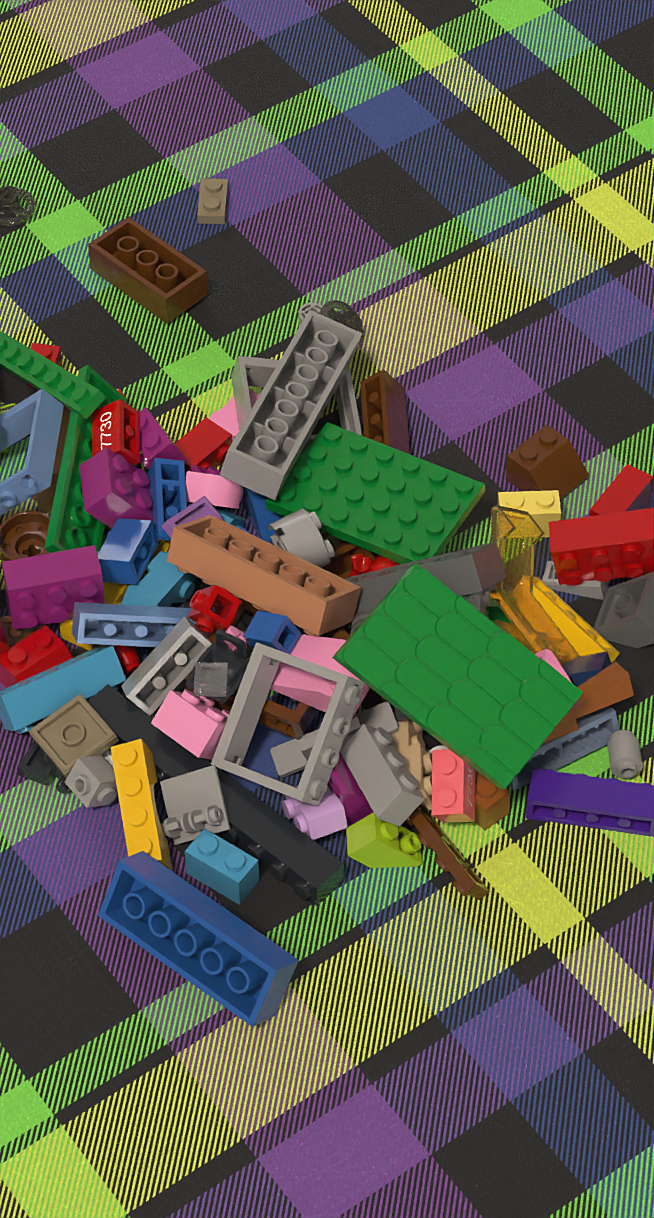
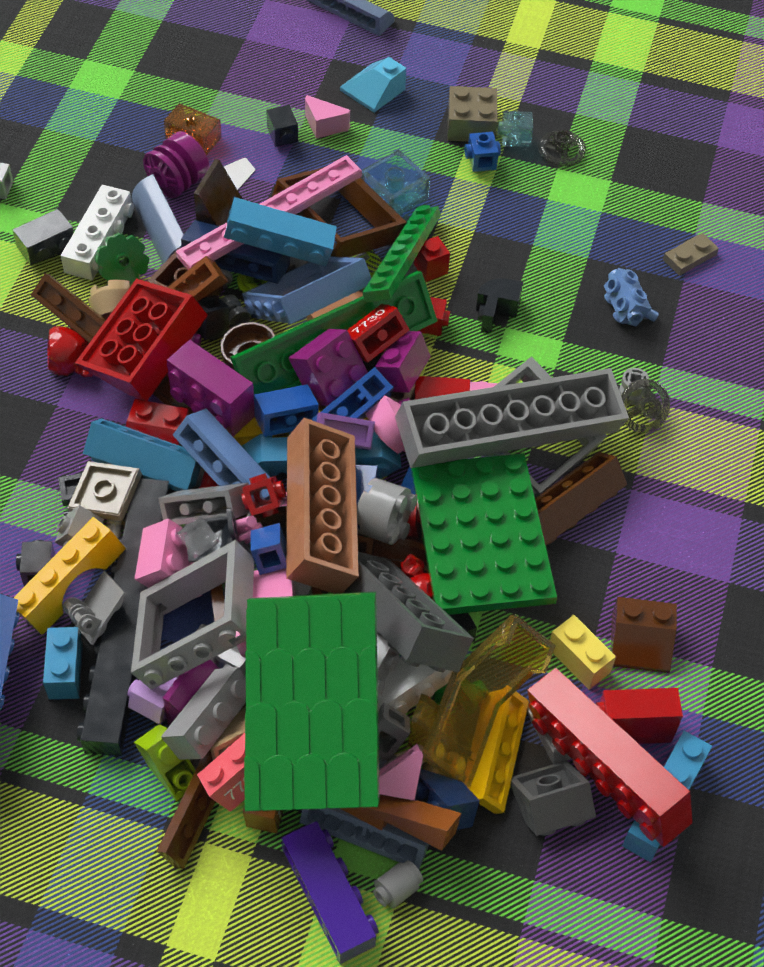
camera: 50 degrees right, 5 degrees up
(97, 833) = (33, 558): none -> brick
(135, 352) = (498, 297): none -> black brick
(148, 269) = (577, 257): reddish brown brick -> none
(224, 267) = (628, 298): none -> medium blue brick

